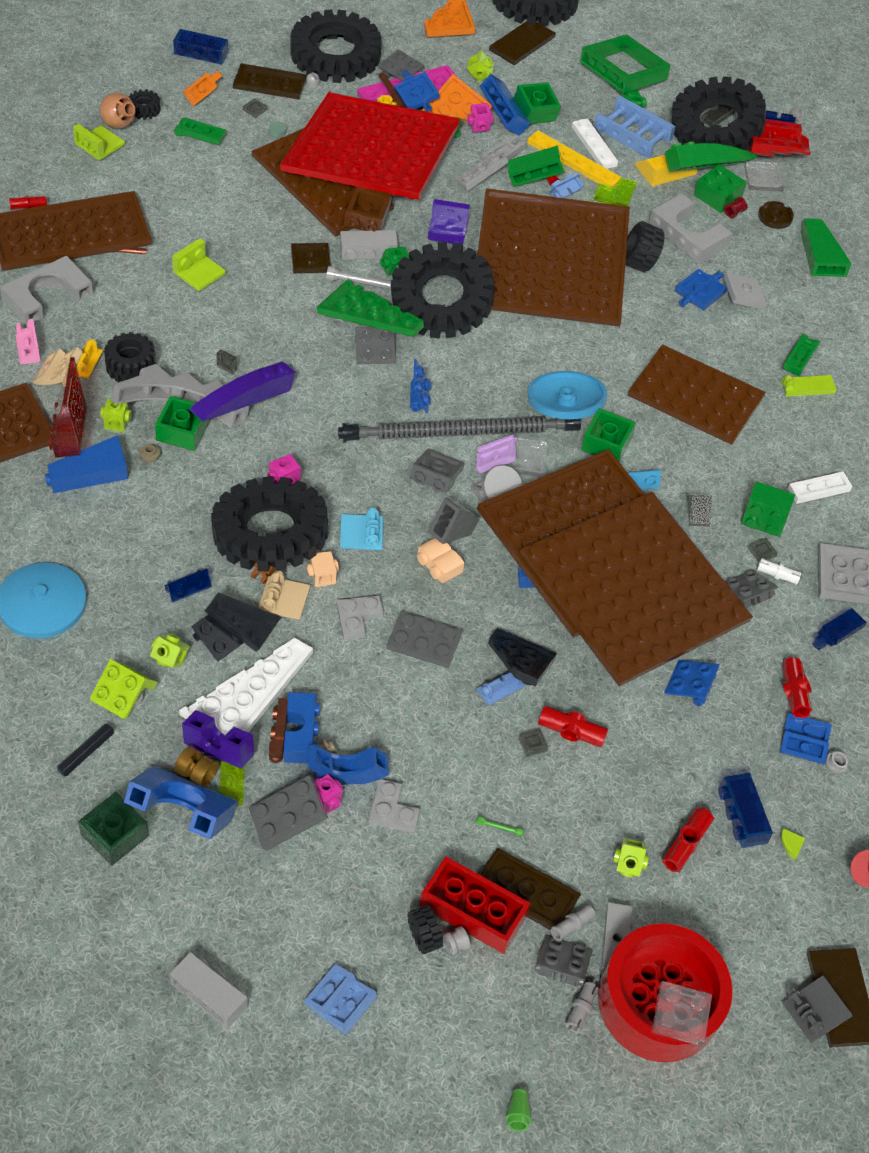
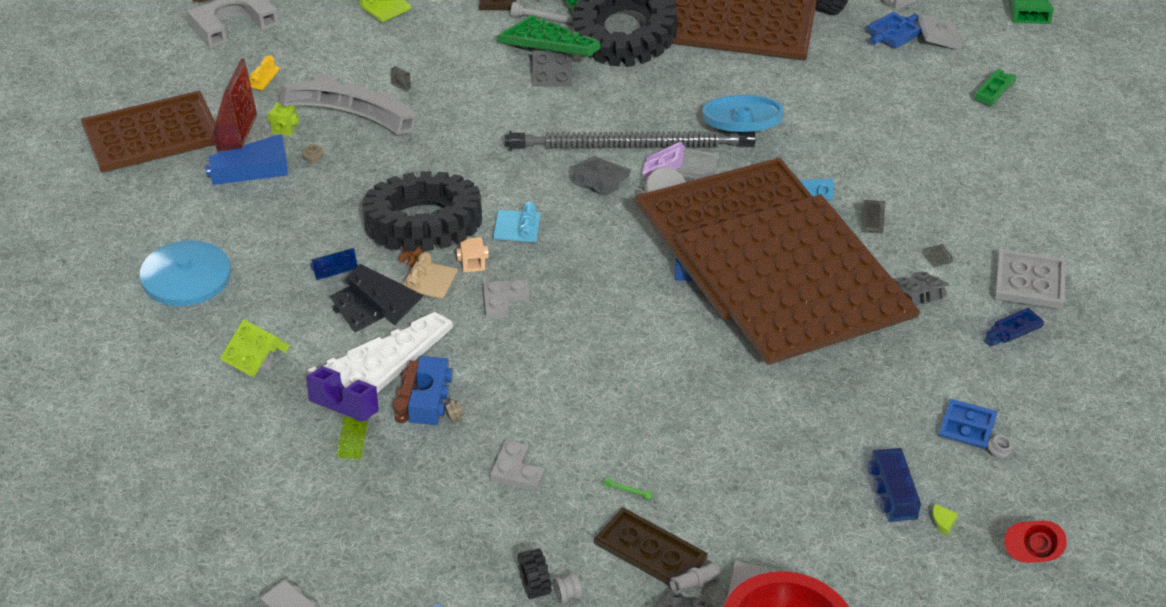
camera: 10 degrees right, 10 degrees down
(27, 343) = (207, 59): bright pink hinge -> none
(55, 367) = (220, 86): tan slope -> none
(85, 750) = (208, 401): black axle -> none
(113, 828) = (224, 468): clear green brick -> none
(128, 355) = (301, 65): black tyre -> none
(169, 650) = (305, 317): lime brick -> none
(179, 425) = (347, 126): green brick -> none
(194, 765) = (317, 419): pearl gold wheel -> none
(210, 808) = (318, 453): blue arch -> none
(245, 391) = (415, 98): dark purple slope -> none
(284, 467) = (445, 163): dark pink brick -> none
(288, 813) = (405, 462): dark grey plate -> none
(330, 792) = (447, 449): dark pink brick -> none
(348, 769) = (472, 429): blue arch -> none
(419, 389) = (593, 104): blue hinge -> none
(424, 639) = (570, 320): dark grey plate -> none
(440, 559) = (595, 250): light nougat brick -> none
(452, 522) = (610, 214): dark grey slope -> none
(475, 904) = (592, 552): red brick -> none
(499, 688) = (642, 365): medium blue hinge -> none
(522, 658) = (669, 337): black plate -> none
(533, 743) = (672, 416): clear smoke tile -> none
(573, 726) = (716, 401): red piece -> none
(608, 432) = (783, 143): green brick -> none
(631, 857) = (772, 516): lime brick -> none
(683, 849) = (829, 508): red piece -> none
(692, 680) = (850, 365): blue hinge -> none
(696, 394) = (881, 119): reddish brown plate -> none
(768, 509) = (944, 215): green brick -> none
(779, 571) = (952, 273): white pin -> none
(797, 687) = (961, 375): red piece -> none
(808, 385) = (1000, 114): lime hinge -> none
(820, 487) = (1004, 201): white plate -> none

